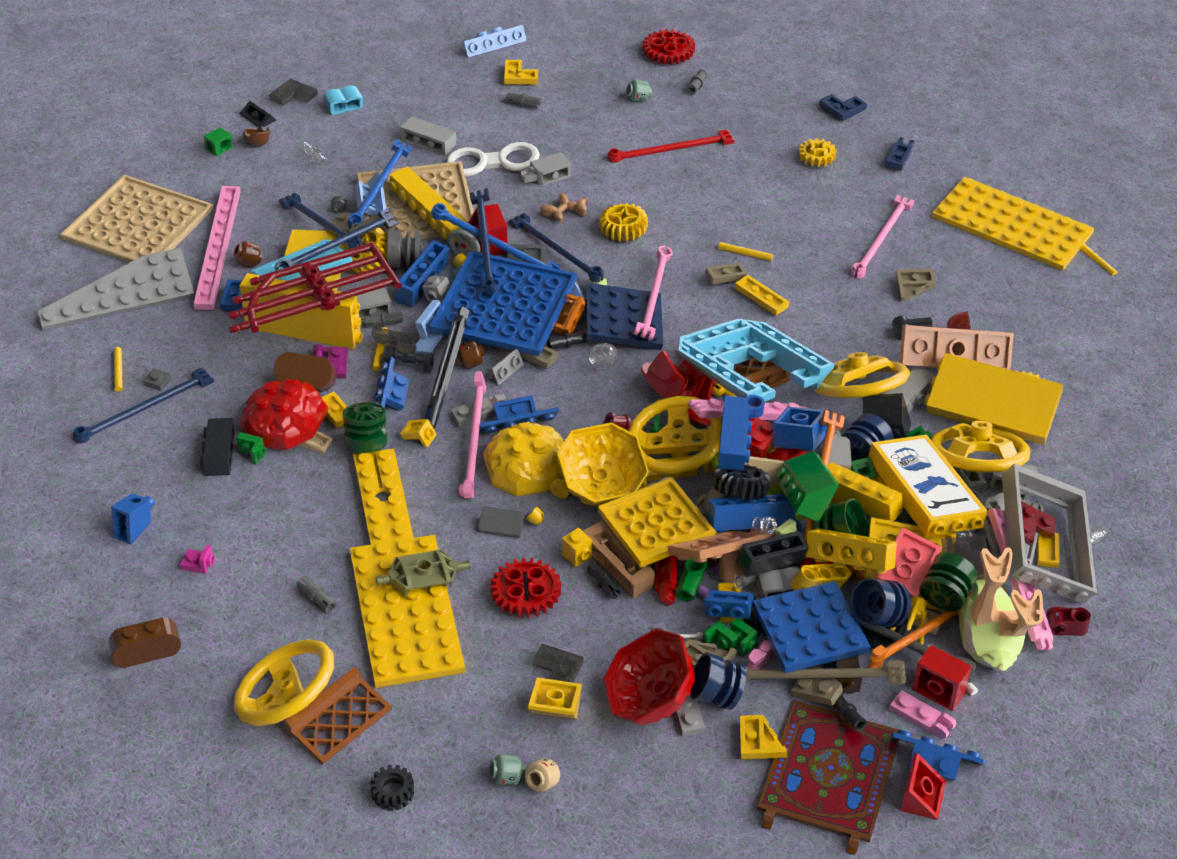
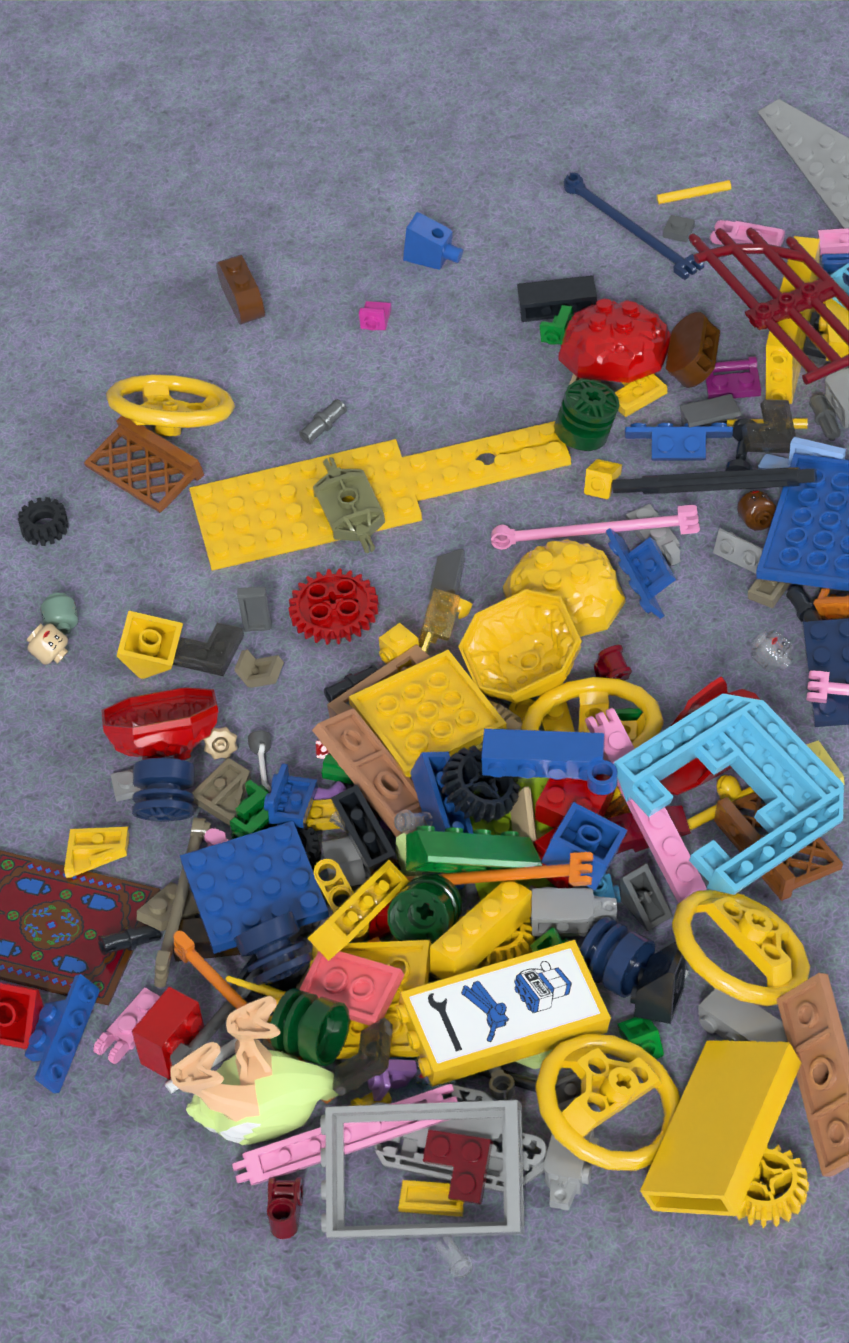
camera: 95 degrees right, 5 degrees up
(182, 341) = (737, 232): none -> bright pink hinge
(373, 368) = (709, 411): none -> dark grey panel
(530, 628) = (254, 609): none -> dark grey tile
(551, 524) = (438, 618): none -> clear yellow bracket
(585, 633) = (258, 671): none -> dark tan bracket

